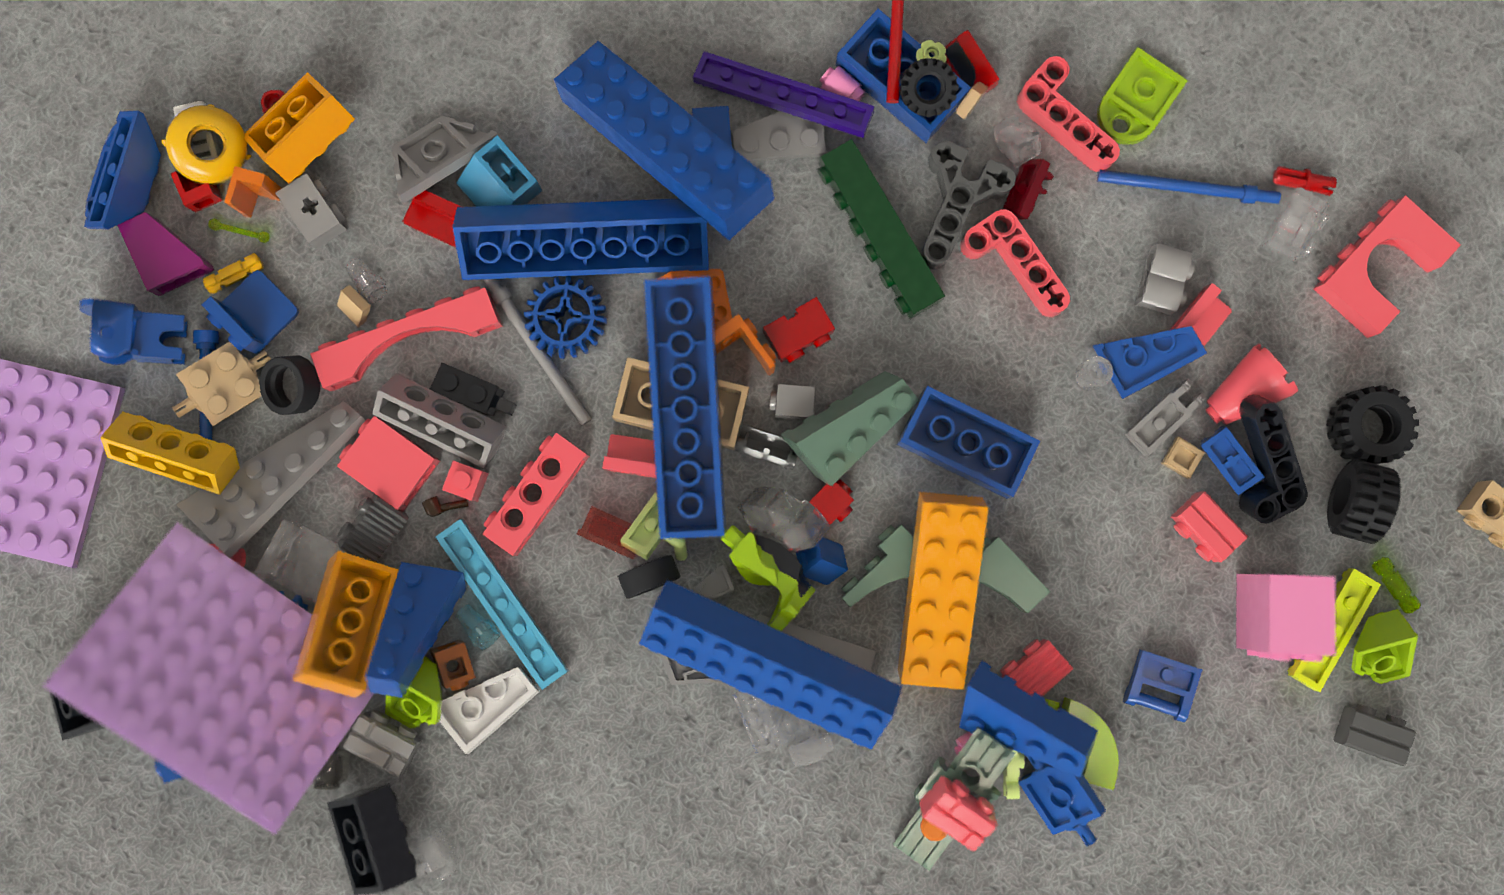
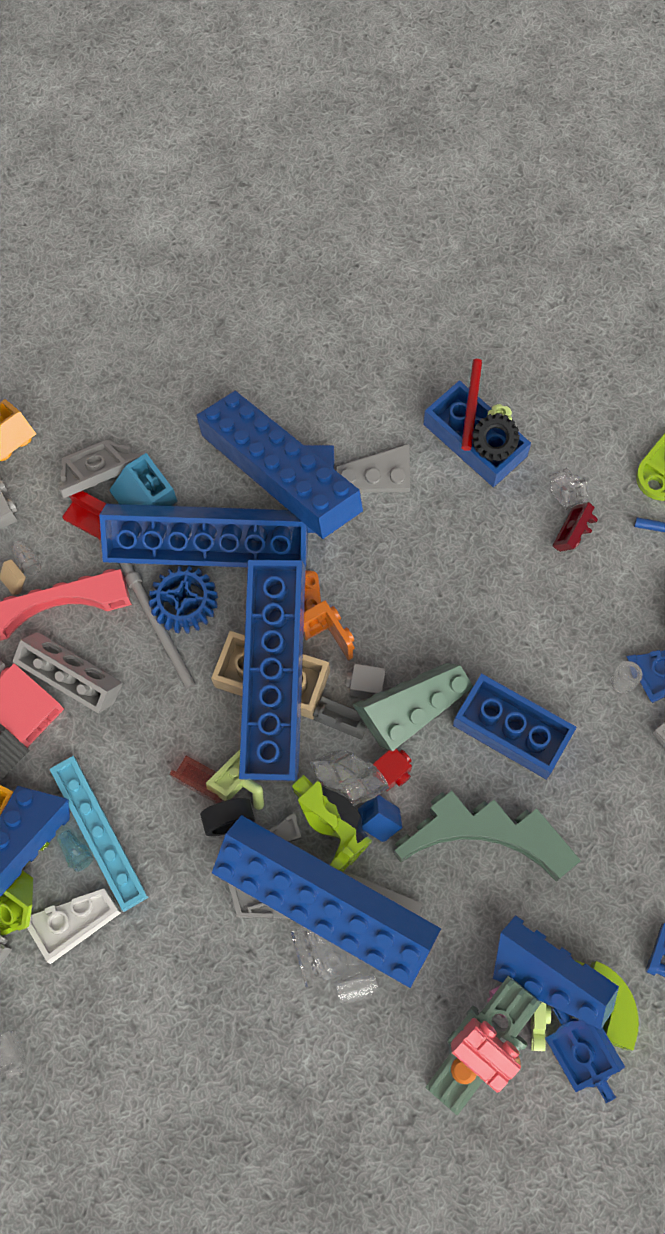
camera: 15 degrees right, 15 degrees down
(434, 508) = (53, 747): dark brown hand -> none
(462, 674) = (52, 871): dark orange brick -> none
(465, 481) = (81, 724): coral brick -> none
(470, 391) = (98, 653): black hinge -> none
(497, 524) = (137, 755): coral brick -> none
(630, 456) = (222, 717): coral panel -> none
(783, 94) = (380, 441): dark purple plate -> none
(806, 328) = (376, 626): red brick -> none
(841, 83) = (427, 440): bright pink brick -> none
(880, 229) = (451, 550): dark green brick -> none
(942, 590) = (483, 850): light orange brick -> none
(970, 62) = (535, 430): red slope -> none
(971, 100) = (531, 455): tan tile -> none
(976, 193) = (512, 517): dark grey beam -> none
(1019, 267) = (565, 586): coral beam -> none
(1038, 669) = (570, 930): coral brick -> none
(1072, 118) = (614, 474): coral beam -> none

